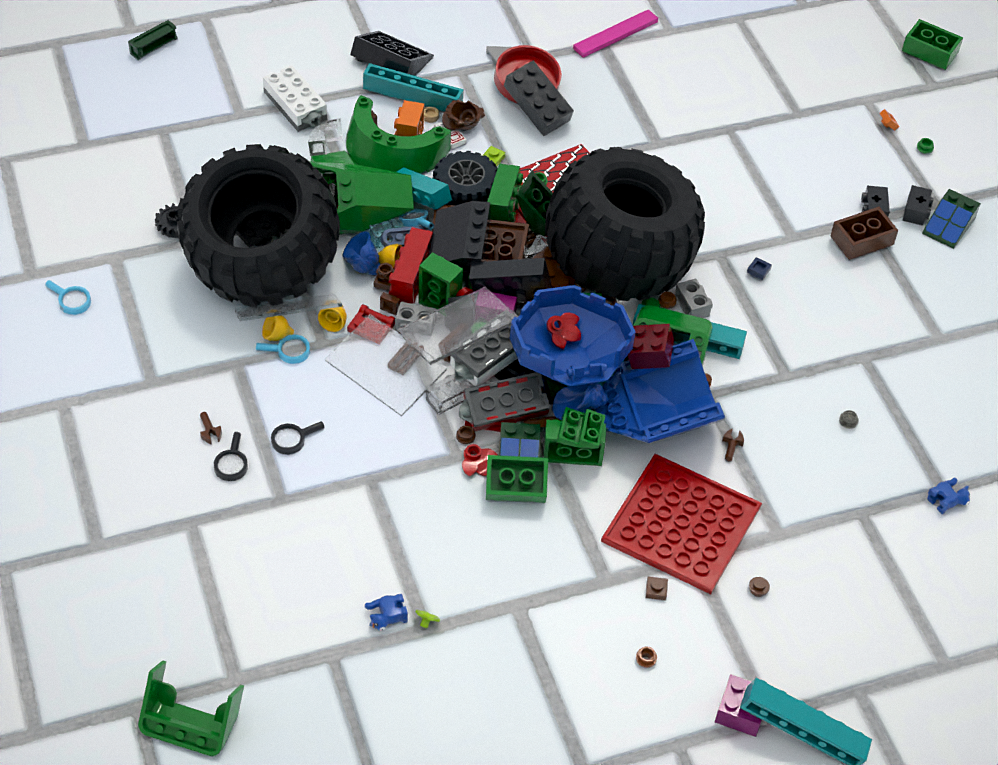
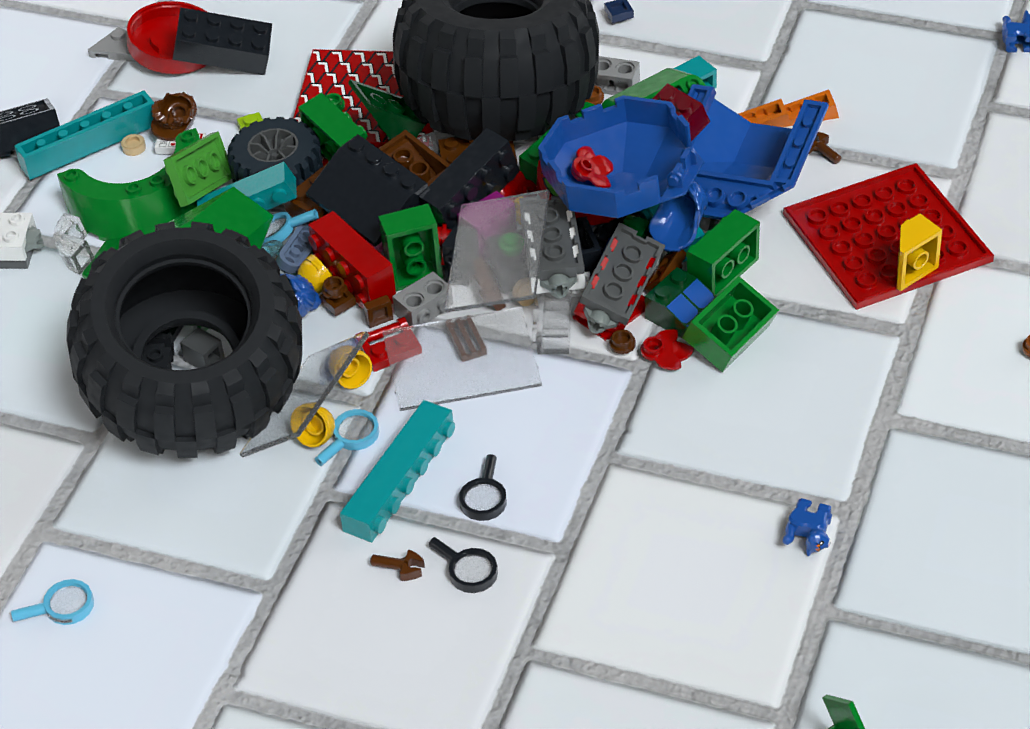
camera: 45 degrees left, 5 degrees down
(167, 220) = (49, 441): black gear -> none
(274, 385) = (397, 471): none -> teal brick
(410, 119) = (138, 155): orange brick -> none
(415, 151) = (198, 168): none -> bright green plate
(426, 618) = (845, 498): lime plant -> none
(581, 428) = (728, 228): green slope -> none
(656, 588) = (954, 296): reddish brown plate -> none
(657, 540) = (917, 250): none -> yellow slope
(741, 405) = (785, 115): none -> orange slope
(759, 586) = (1016, 219): reddish brown plate -> none
(848, 419) = (867, 49): clear smoke plate -> none

